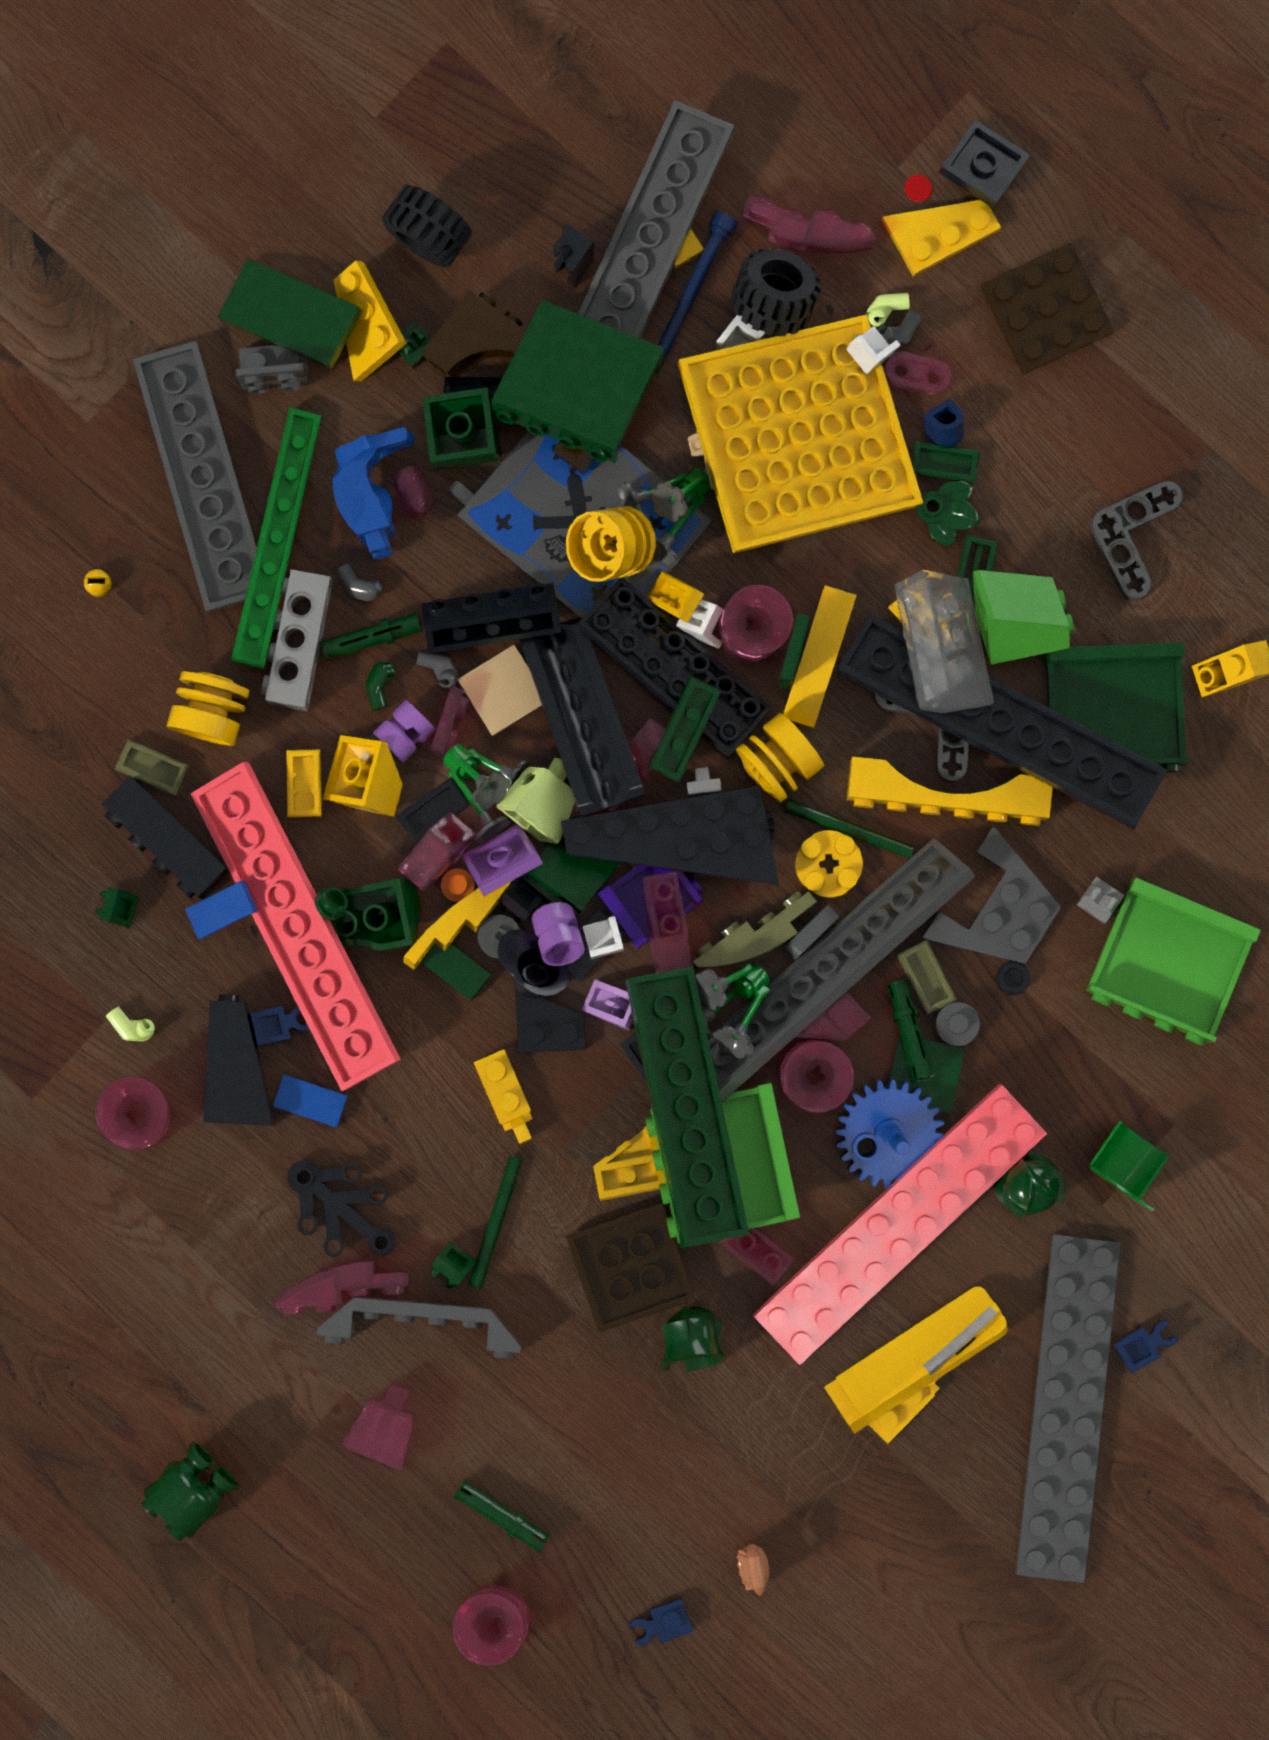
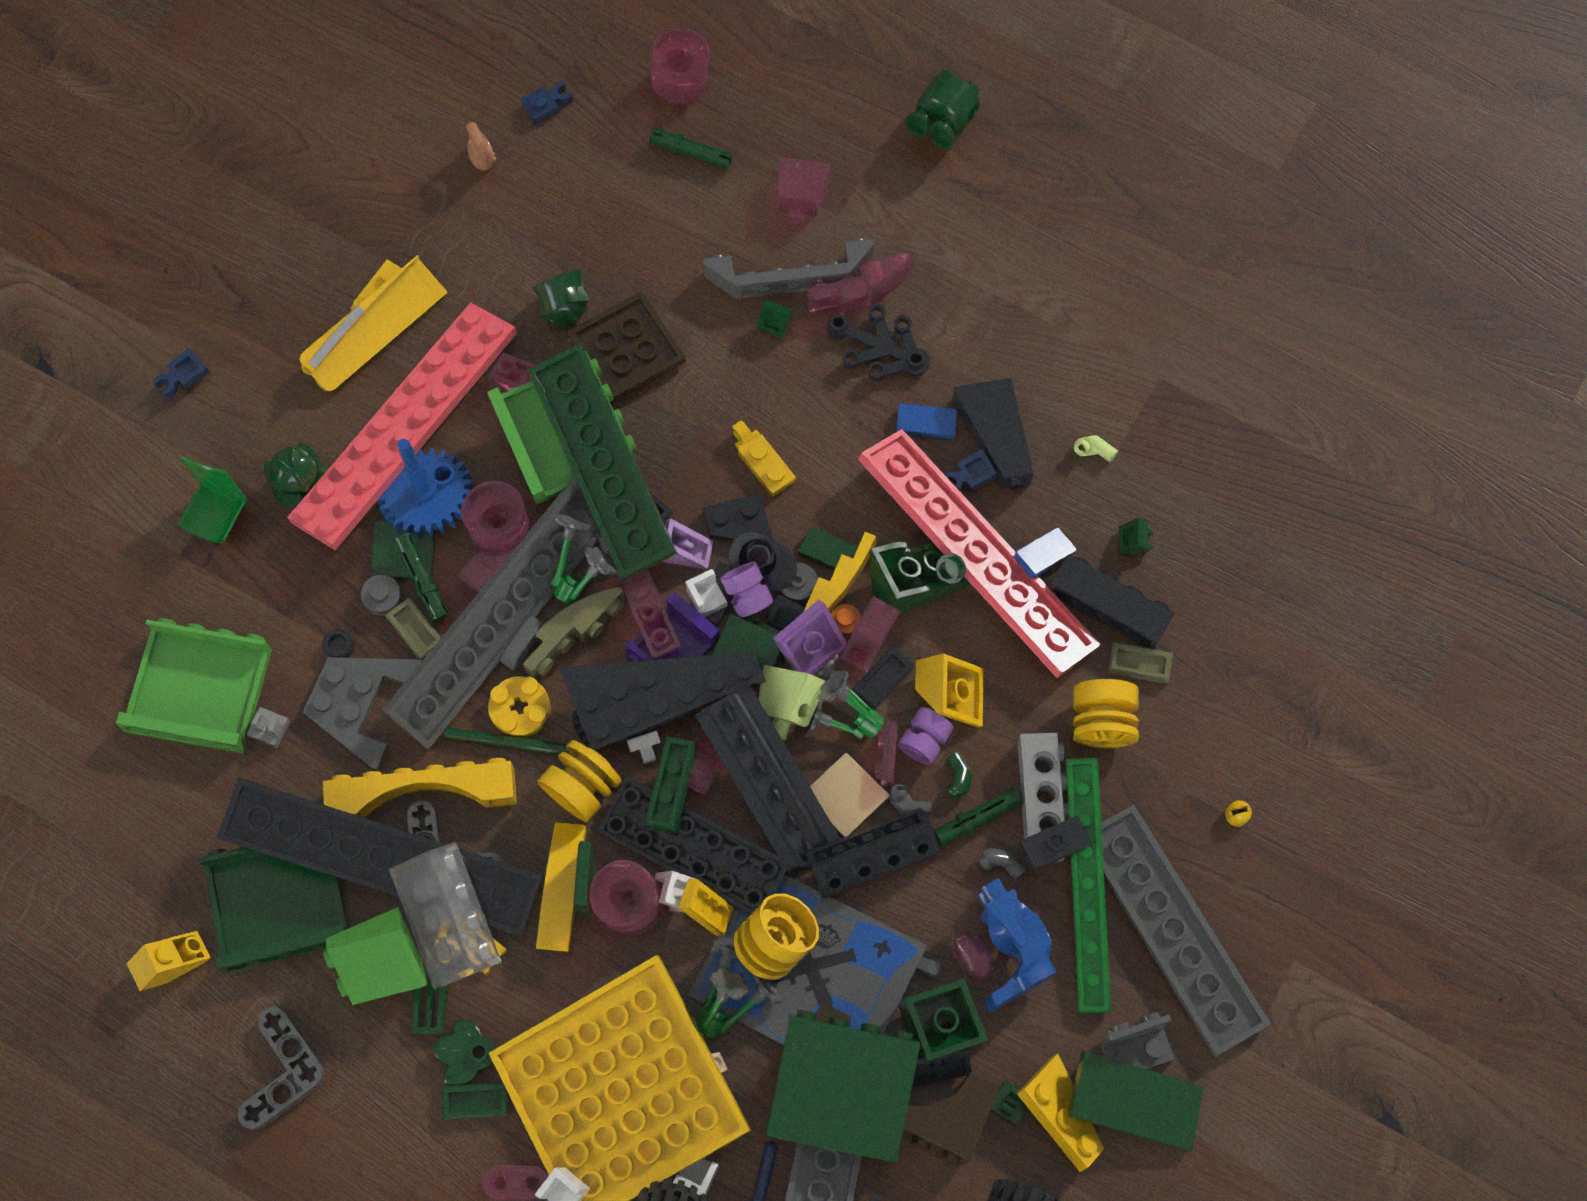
camera: 165 degrees right, 15 degrees down
(122, 1098) = (1073, 357): clear pink wheel -> none
(300, 580) = (1055, 843): none -> black plate
(304, 783) = (1002, 675): yellow plate -> none
(495, 1222) = (747, 361): dark green bar -> none
(629, 1169) = (646, 420): yellow wing -> none
(945, 424) = (480, 1135): dark blue plate -> none
(1067, 1408) = (240, 320): dark grey plate -> none

